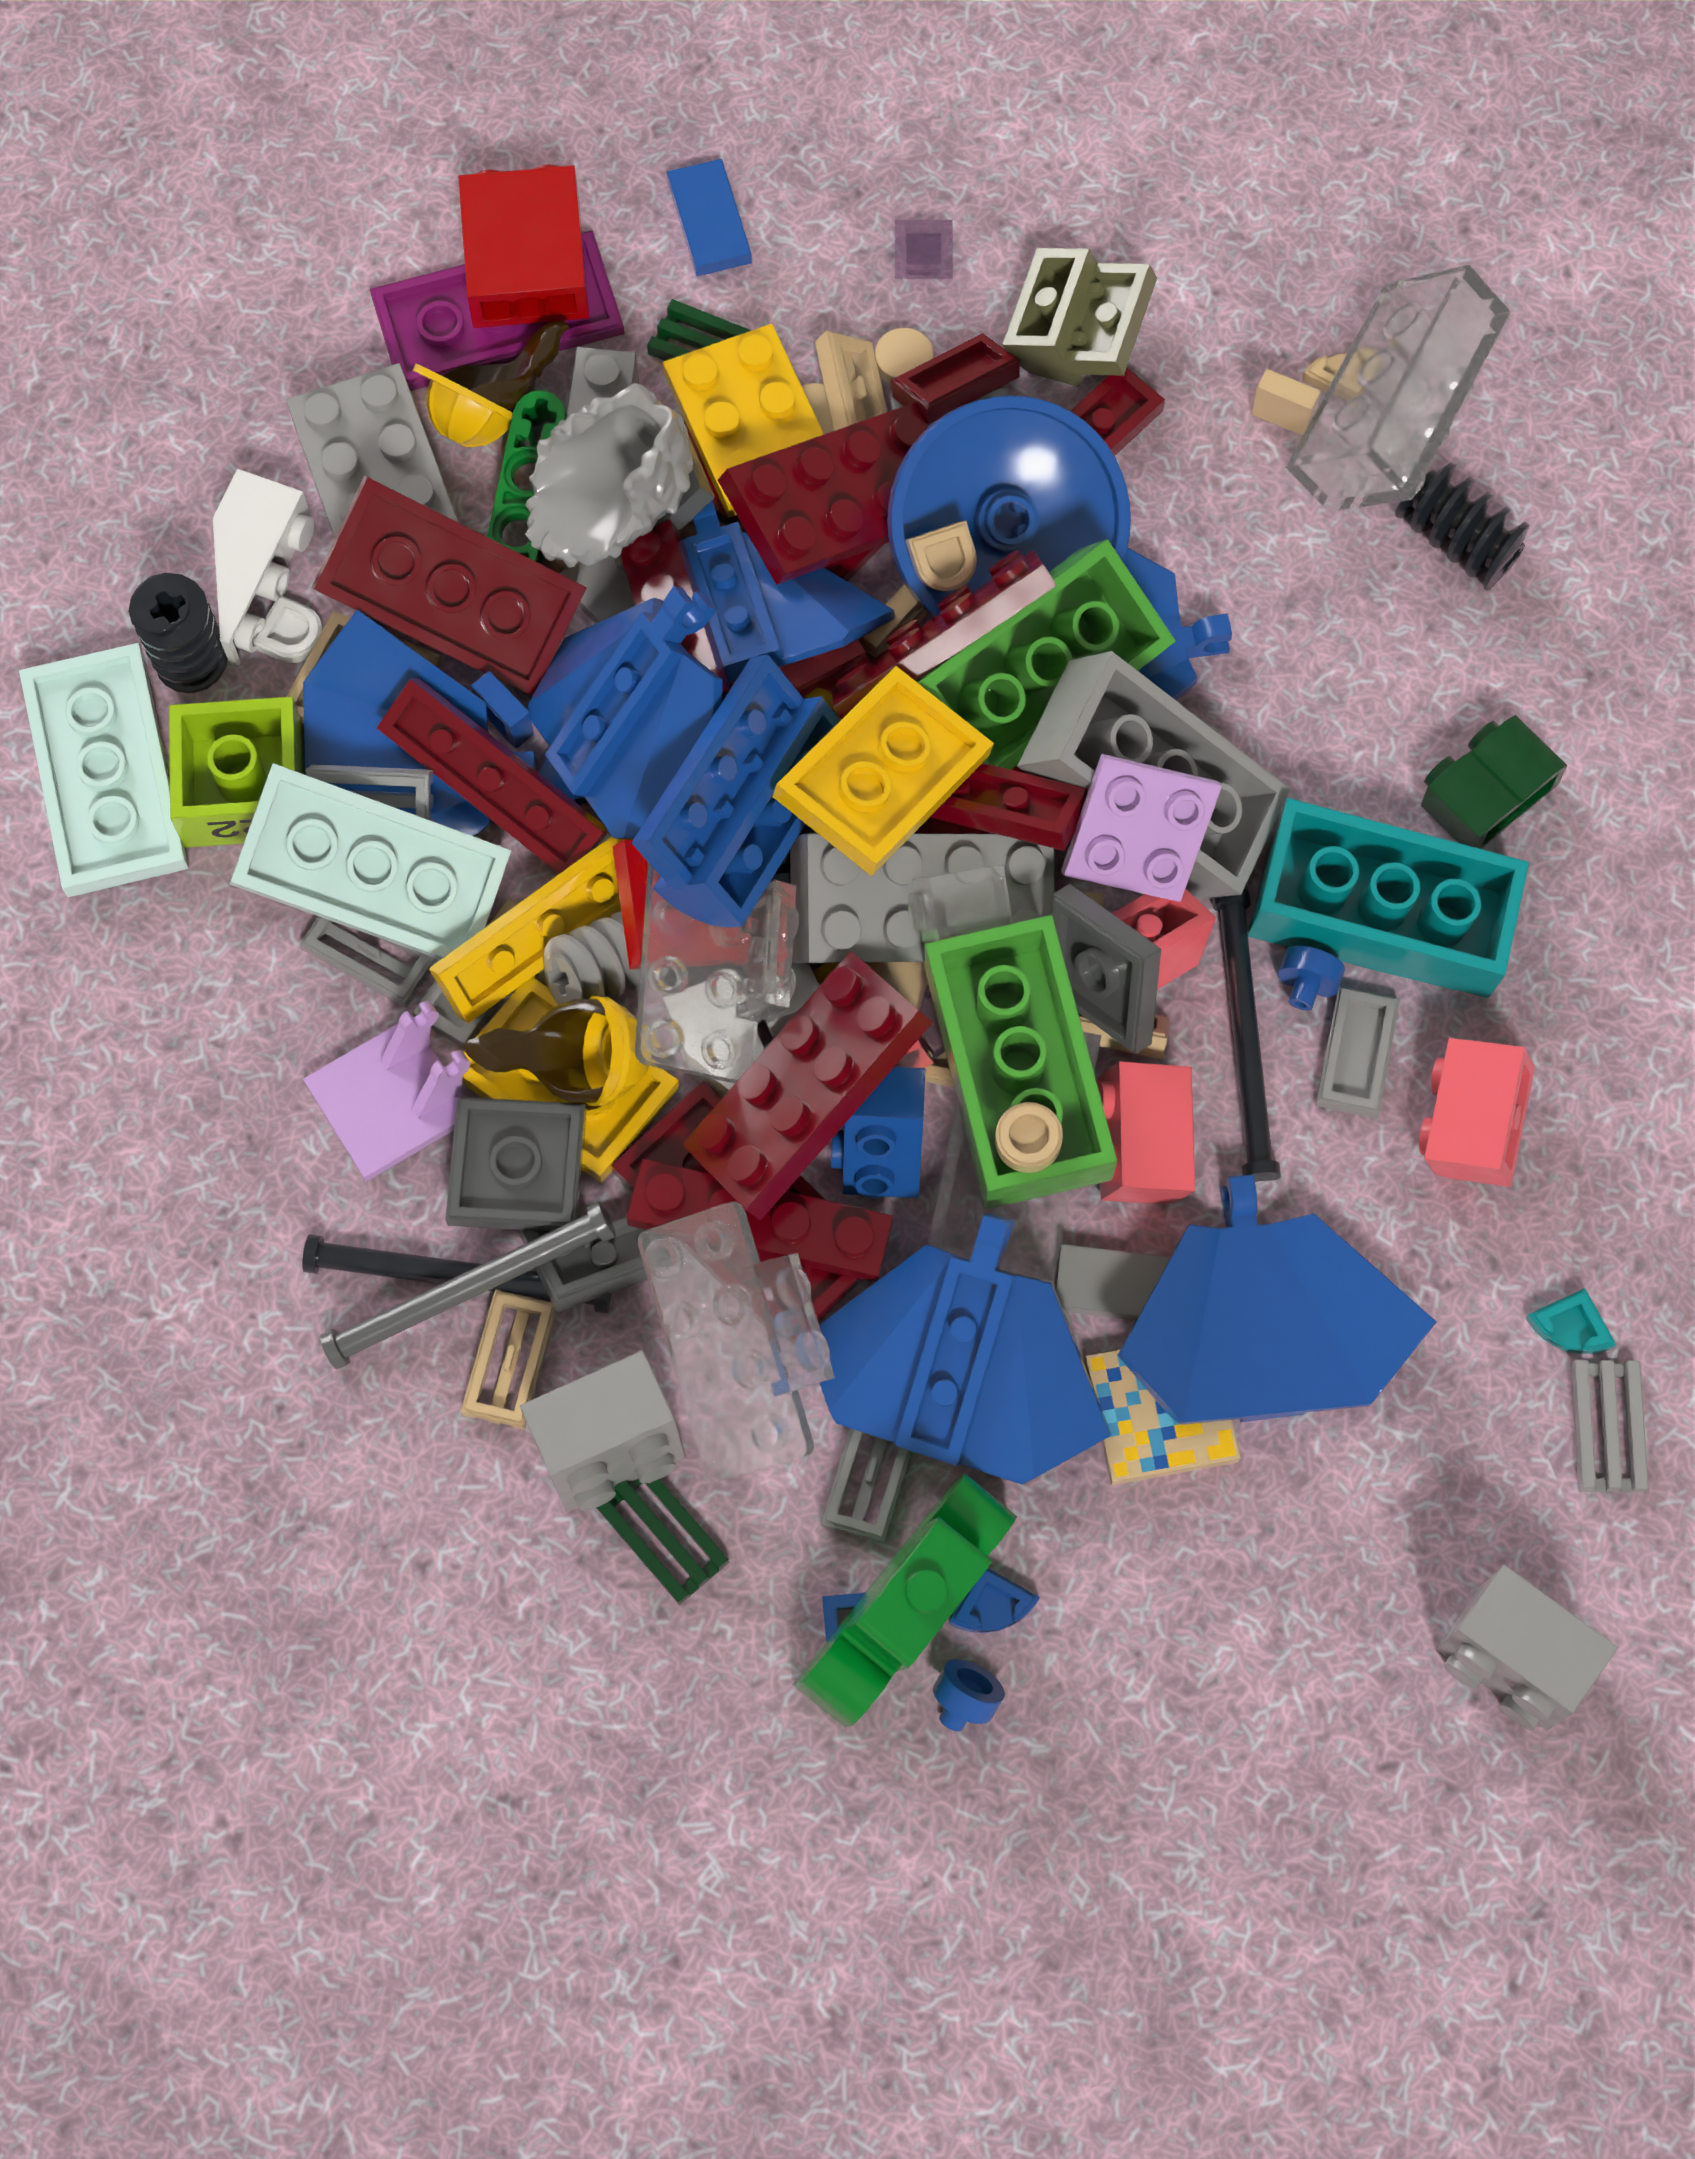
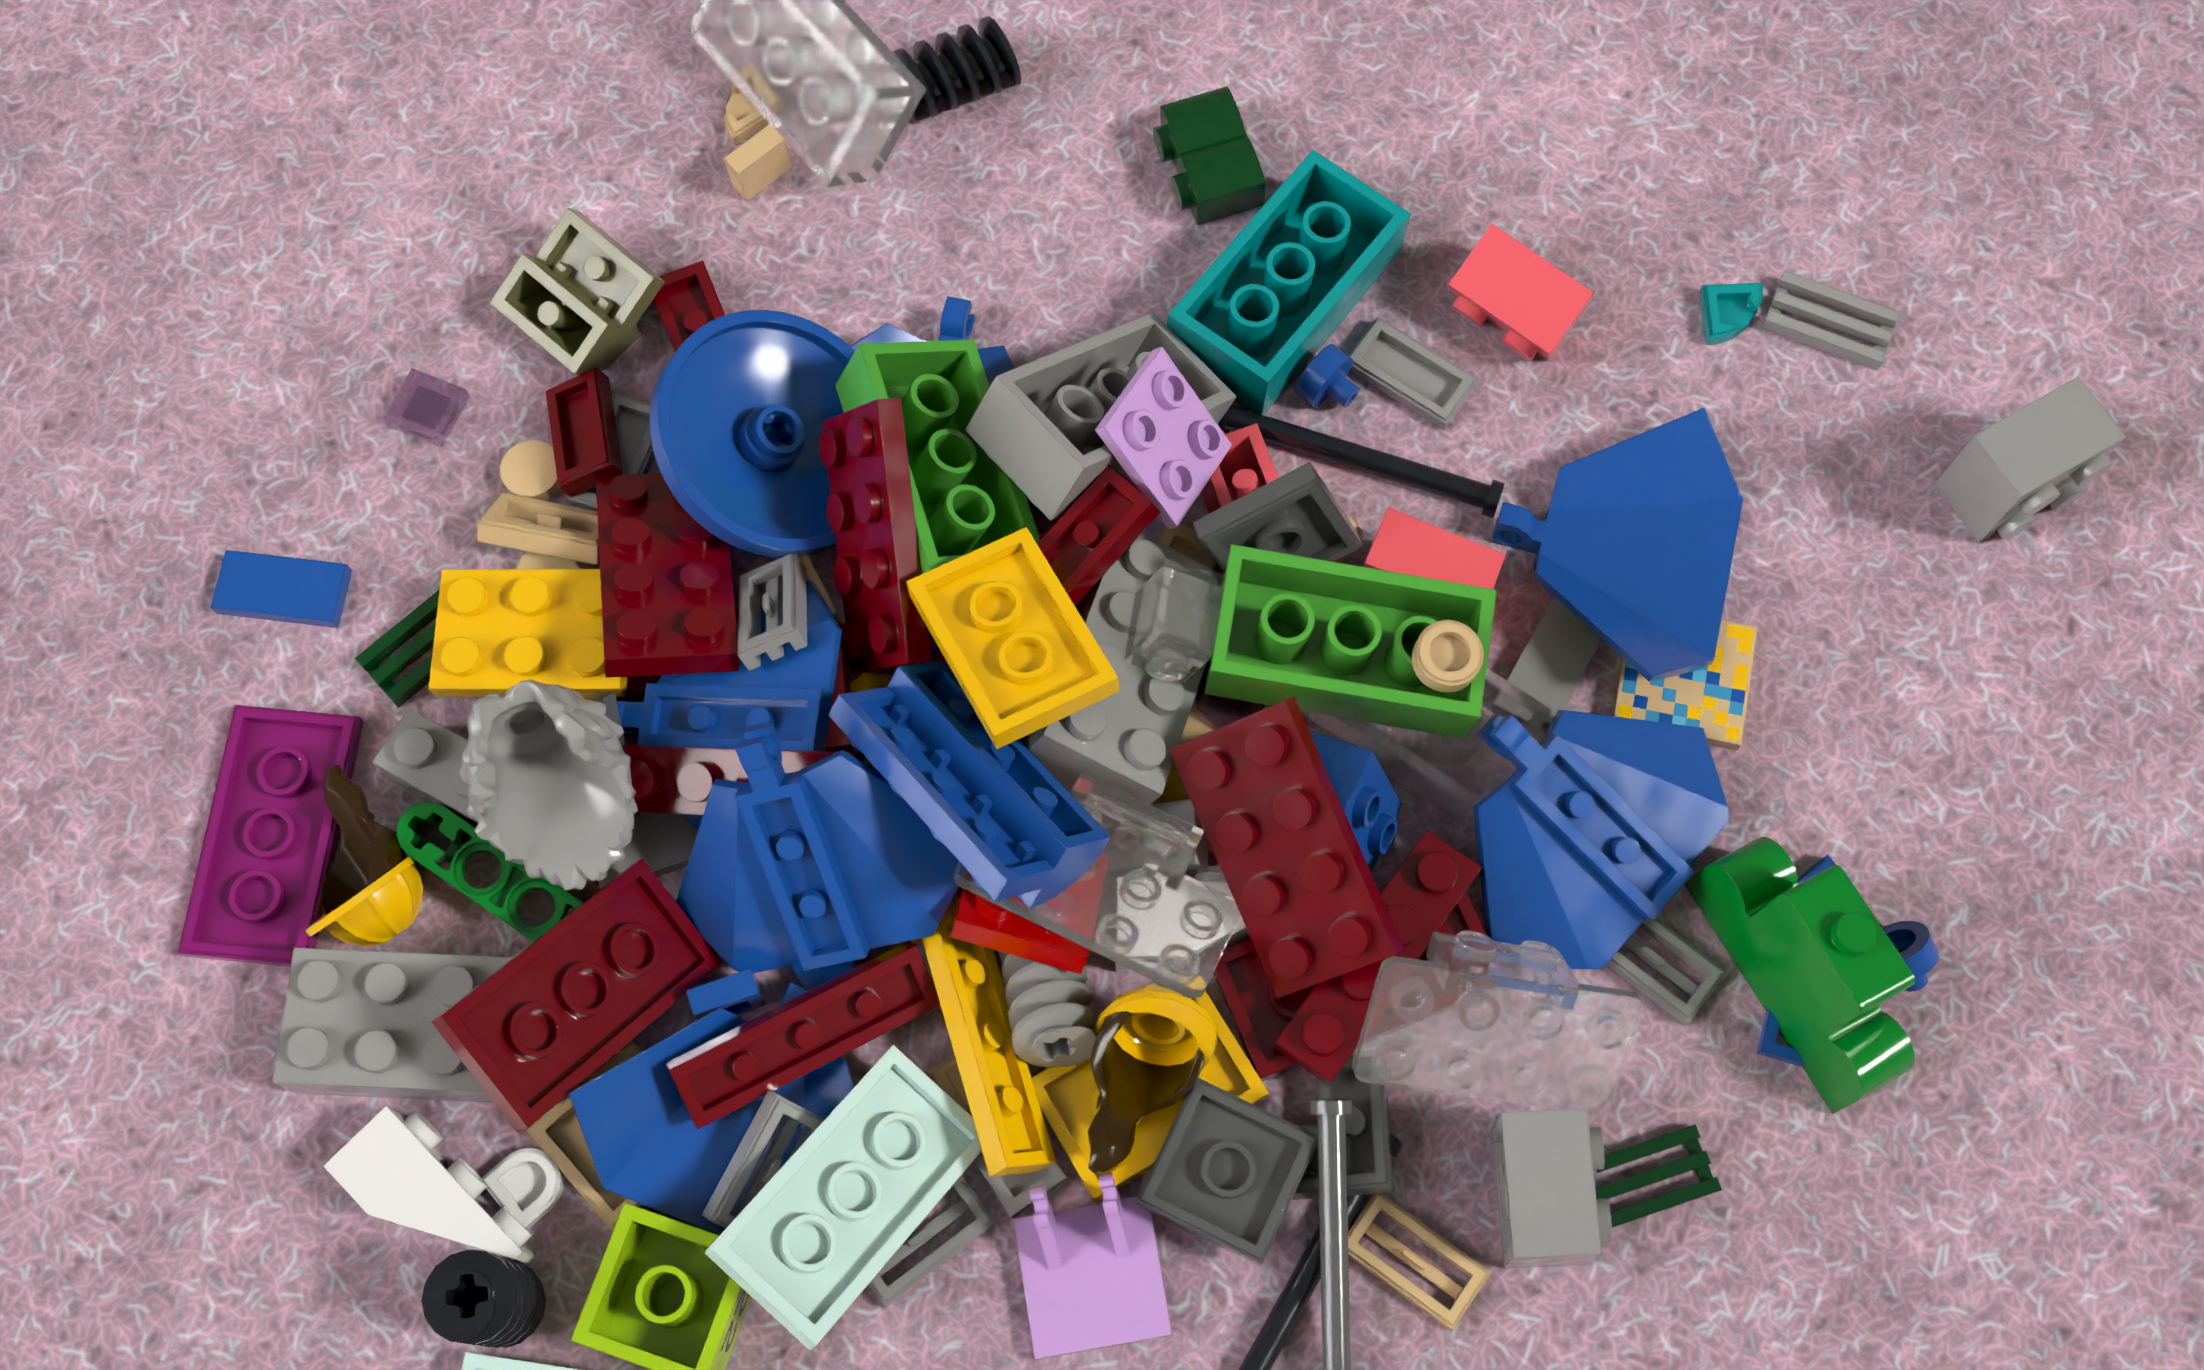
camera: 65 degrees left, 0 degrees up
(523, 246) = (223, 772): red brick -> none
(843, 587) = (784, 608): none -> light grey tile
(943, 557) = (789, 503): tan tile -> none

